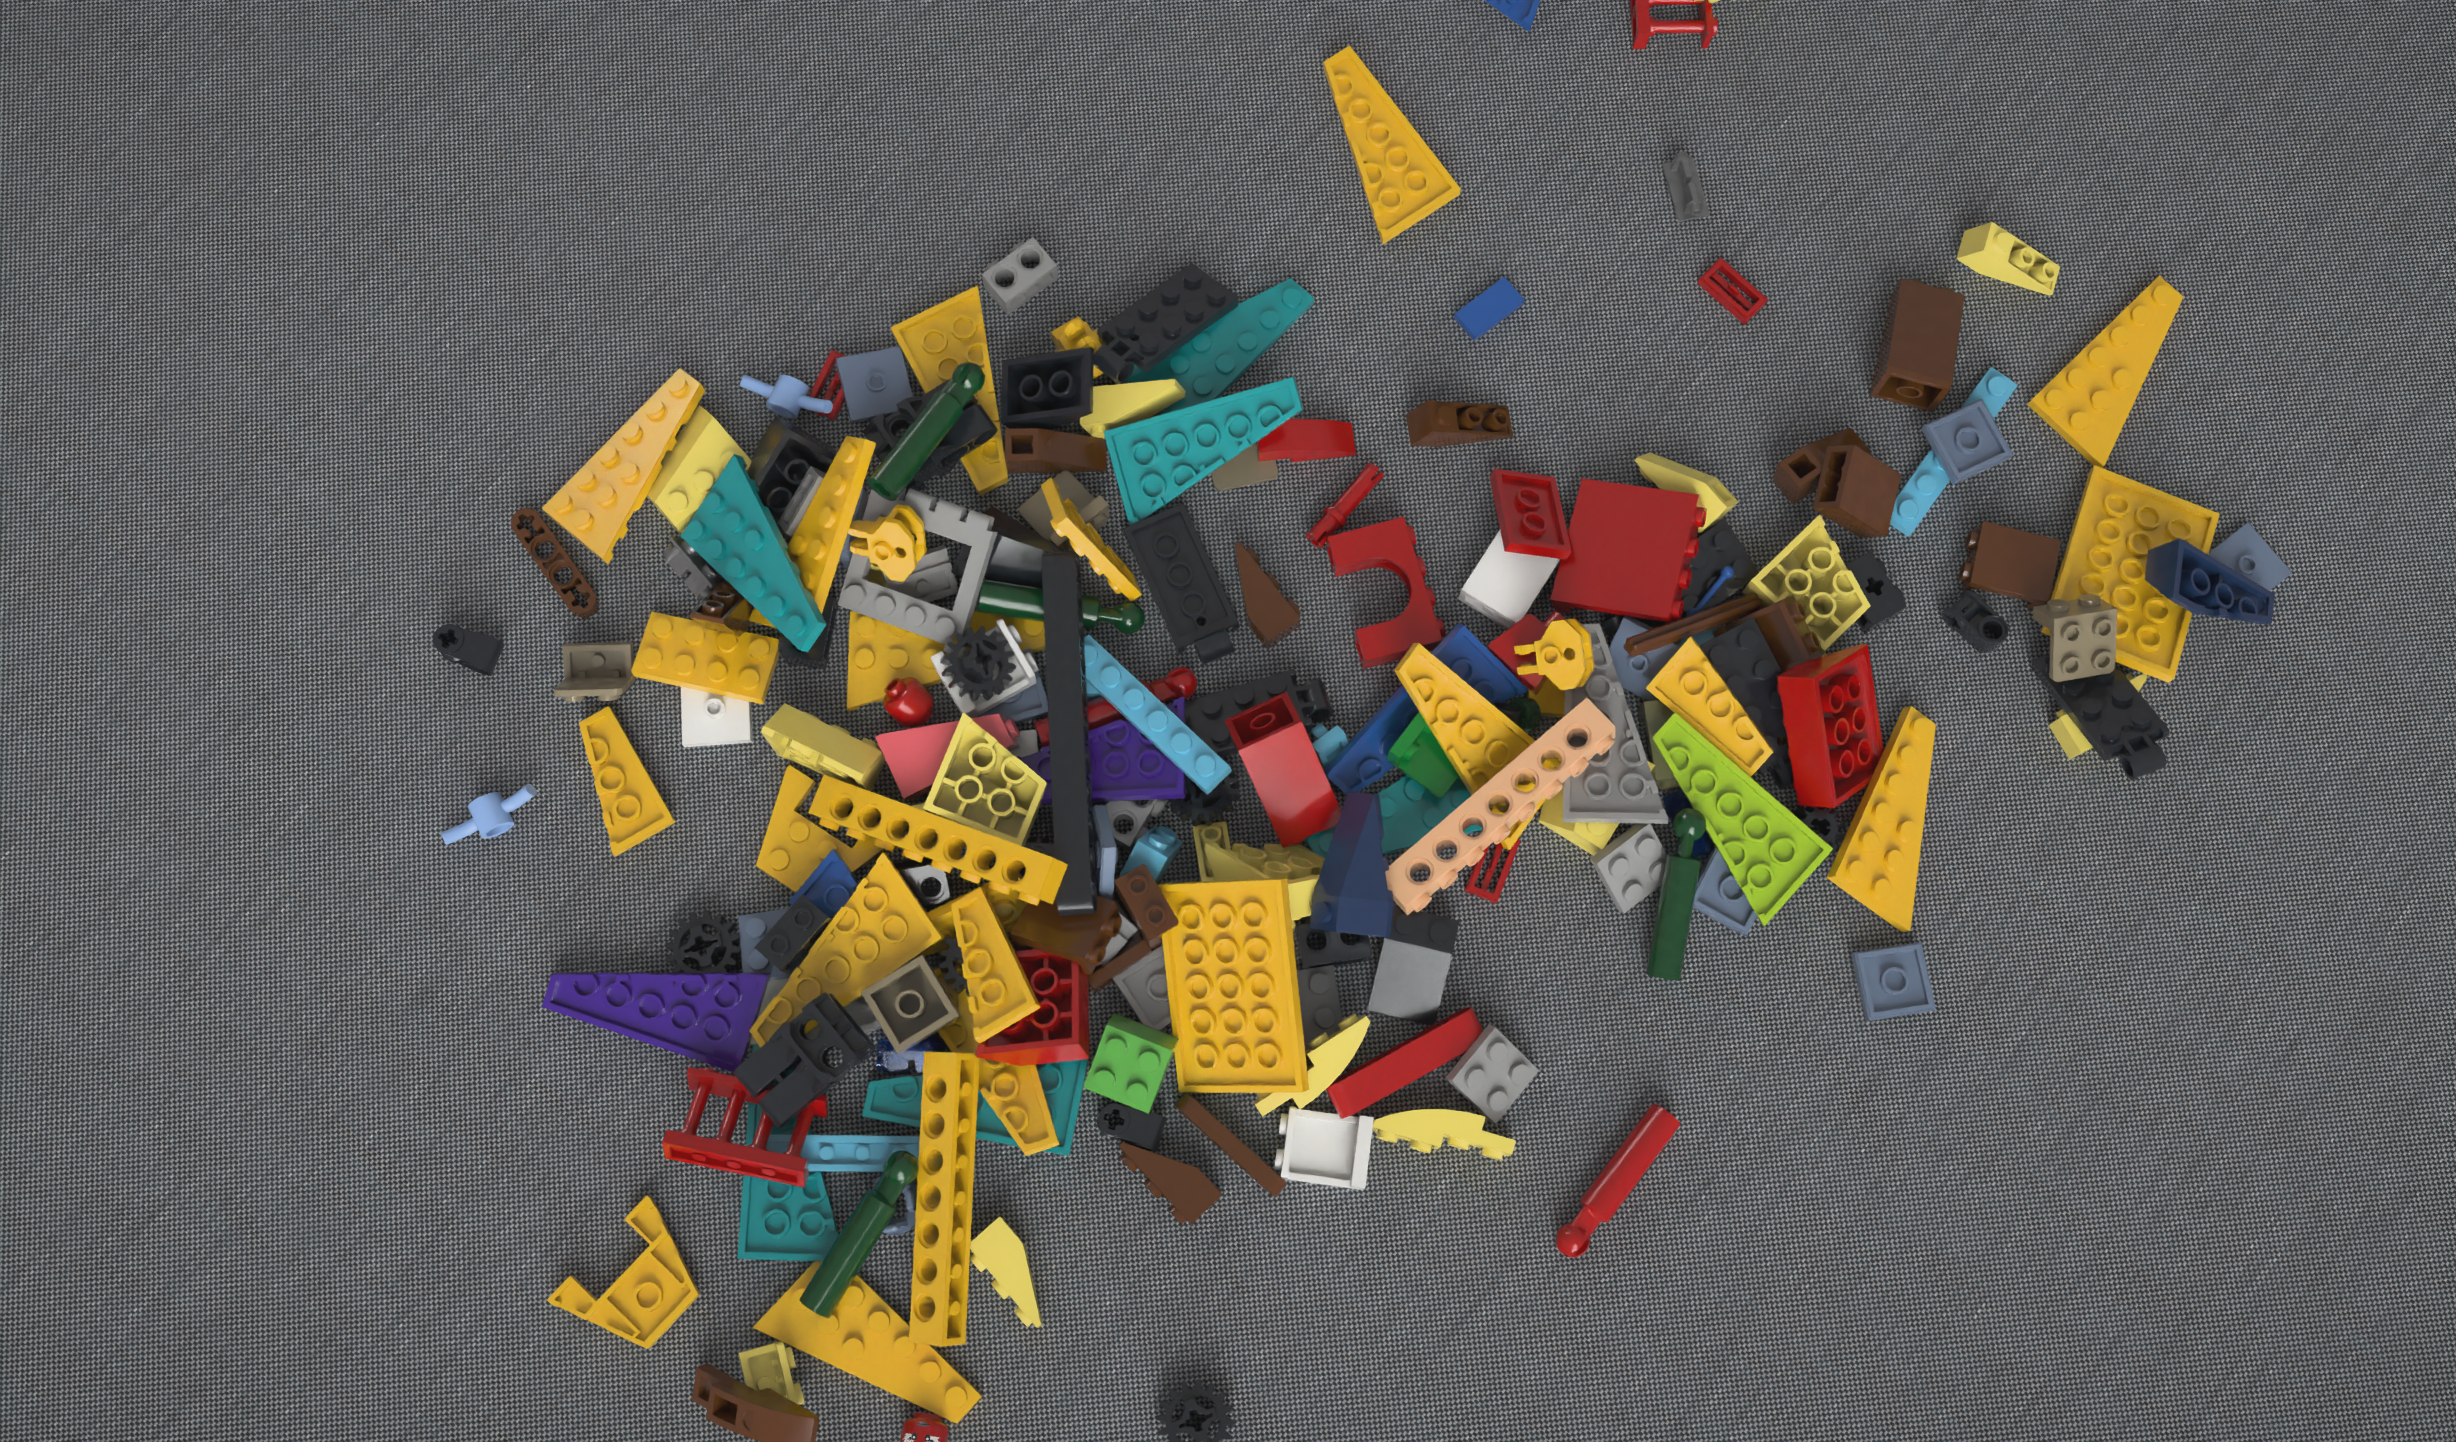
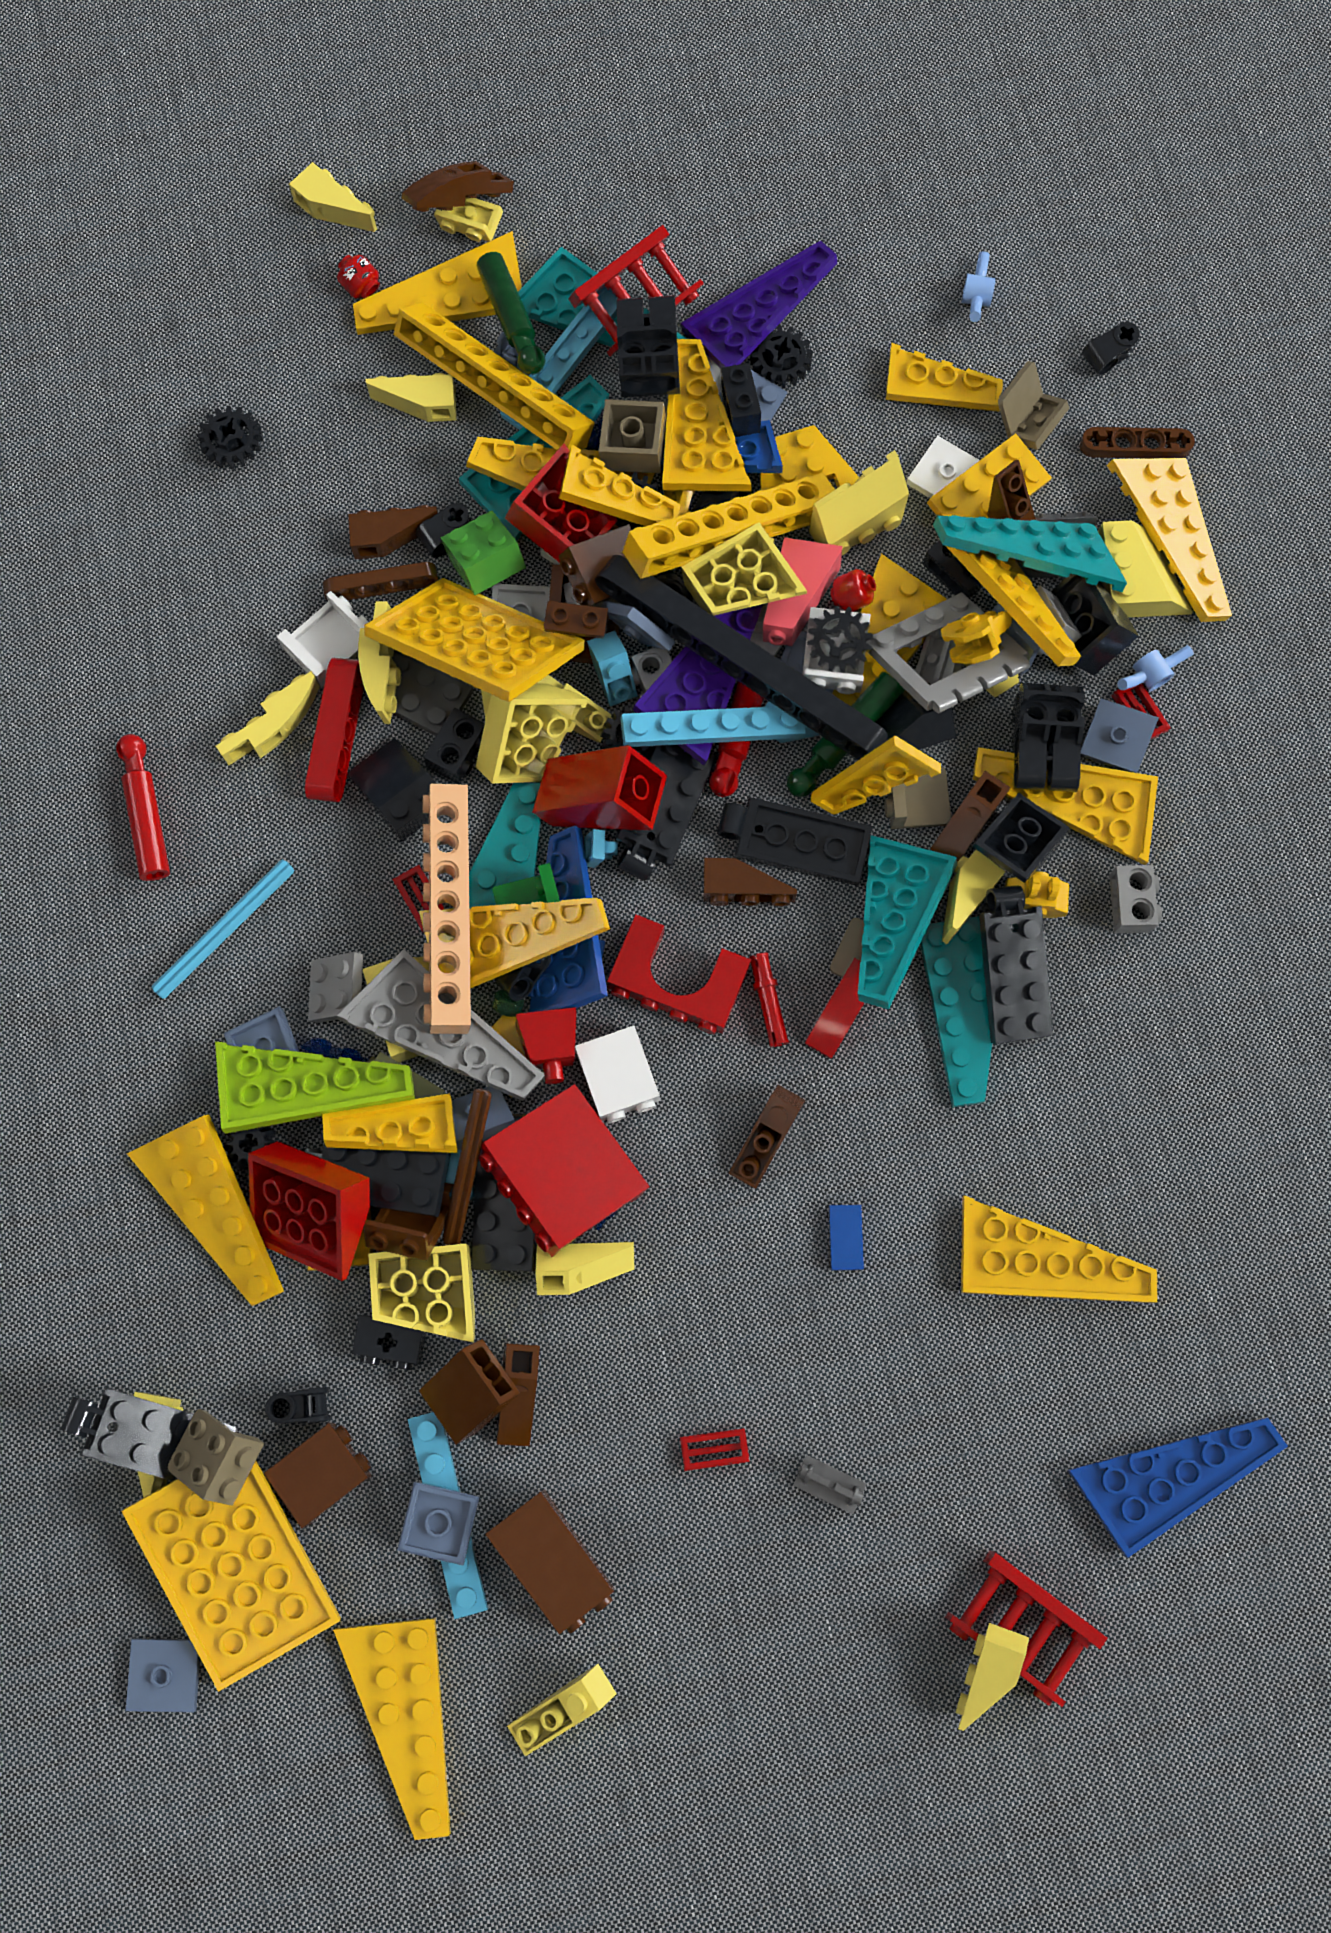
camera: 130 degrees right, 0 degrees up
(647, 1295) = (584, 190): yellow wing -> none
(926, 432) = (1044, 716): dark green piece -> none
(1352, 882) = (477, 762): dark blue wedge -> none
(1492, 1074) = (279, 779): light grey plate -> none
(1530, 514) = (651, 1122): red plate -> none
(1561, 654) = (520, 1036): yellow hinge -> none
(1659, 1015) = (222, 929): none -> medium azure axle
(1676, 899) = (286, 996): dark green piece -> none
(1726, 573) = (478, 1184): blue hinge -> none
(1893, 981) = (103, 1110): sand blue plate -> none
(2206, 584) = (166, 1599): dark blue wedge -> none

